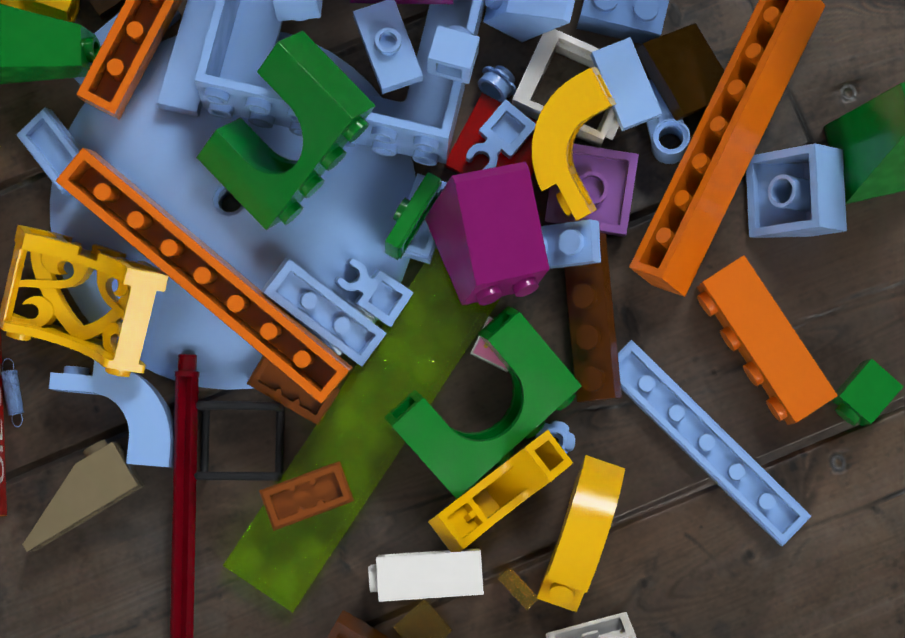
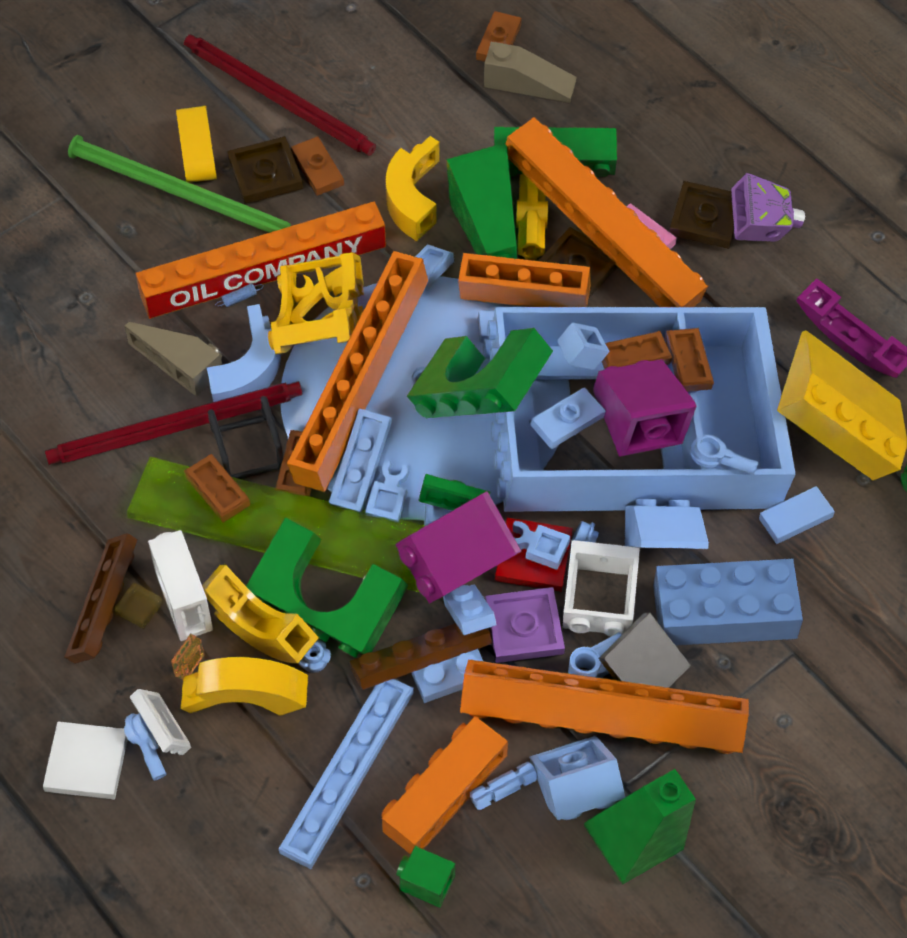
camera: 75 degrees right, 25 degrees down
(453, 53) = (577, 457): light blue plate -> none
(555, 136) = (550, 572): yellow arch -> none
(627, 84) = (613, 612): light blue tile -> none
(627, 294) = (444, 677): none -> light blue plate
(778, 274) = (503, 785): none -> light blue axle

